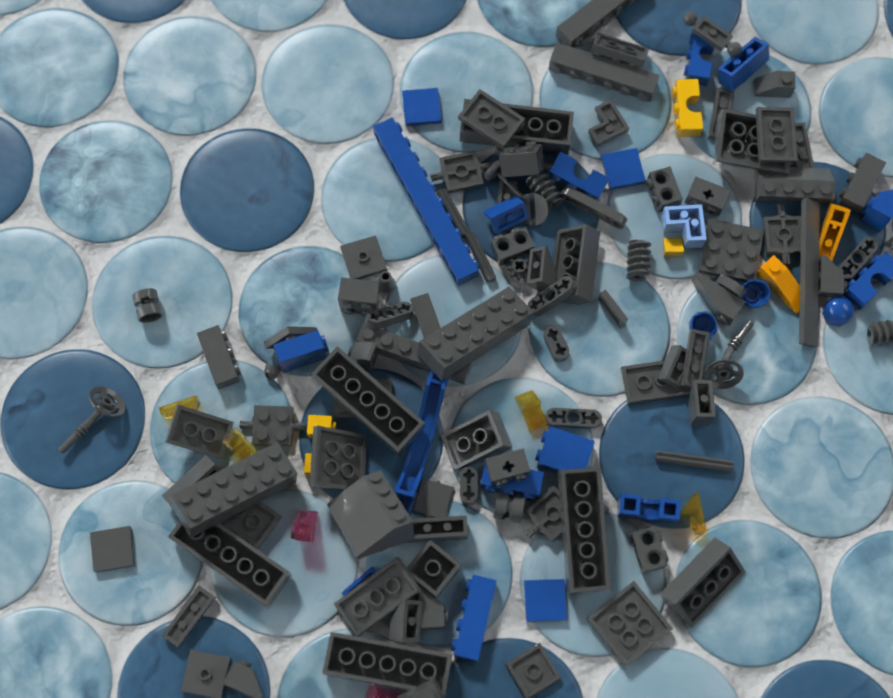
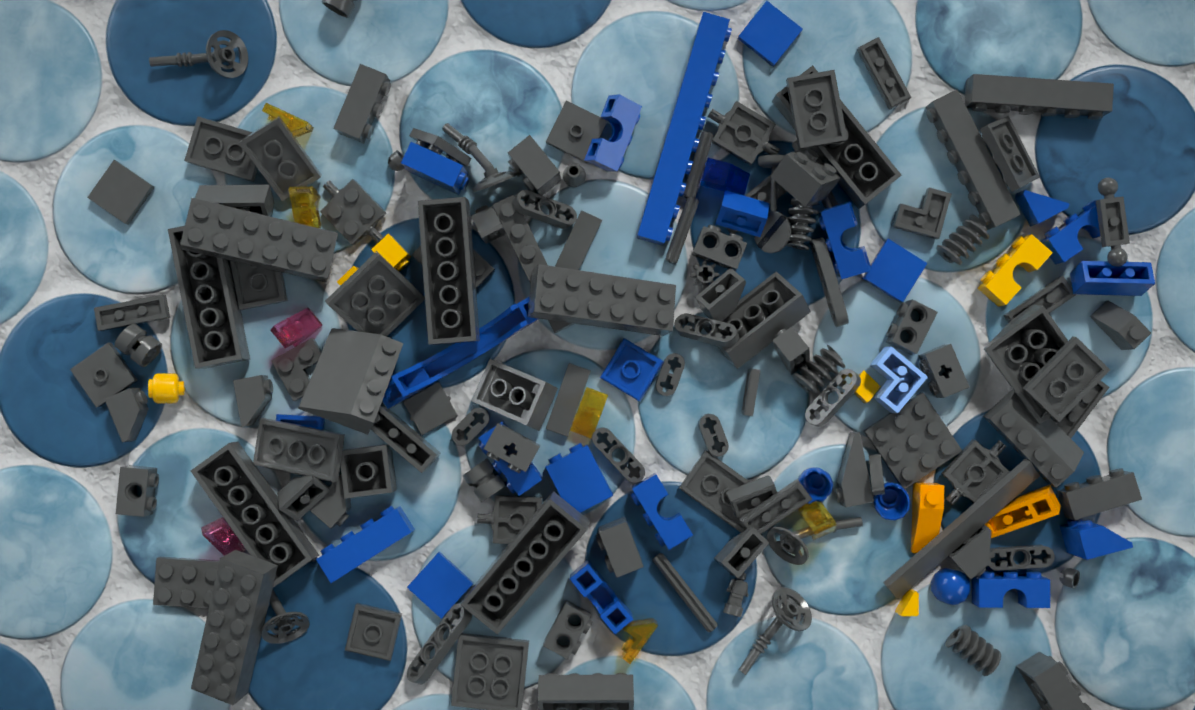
camera: 40 degrees right, 15 degrees up
(155, 462) = (218, 149): none -> dark grey plate
(205, 631) = (135, 341): none -> dark grey wheel
(255, 642) = (165, 388): none -> yellow head
(308, 321) = (491, 174): none -> dark grey dish
(316, 594) = (252, 397): none -> dark grey slope
(324, 555) = (292, 367): none -> dark grey plate
(383, 224) = (623, 117): none -> arch
(474, 204) = (724, 177): none -> clear blue slope
(507, 71) = (884, 73): none -> dark grey tile
(511, 414) = (568, 399): none -> dark grey tile
(531, 361) = (632, 369): none -> blue tile
(583, 635) = (422, 666): none -> dark grey beam
(611, 261) = (791, 349): none -> dark grey slope
(614, 358) = (718, 432): none -> dark grey beam
(615, 424) = (670, 530): none -> blue arch
(629, 467) = (620, 547): none -> dark grey brick
(643, 117) = (962, 240): none -> dark grey piece
(655, 263) = (825, 414): none -> dark grey beam
(665, 63) = (1038, 207): none -> blue slope
(724, 430) = (737, 590): none -> dark grey piece
(725, 341) = (817, 519): none -> clear yellow slope
(763, 413) = (784, 616): none -> dark grey dish
(826, 341) = (909, 604): none -> yellow slope

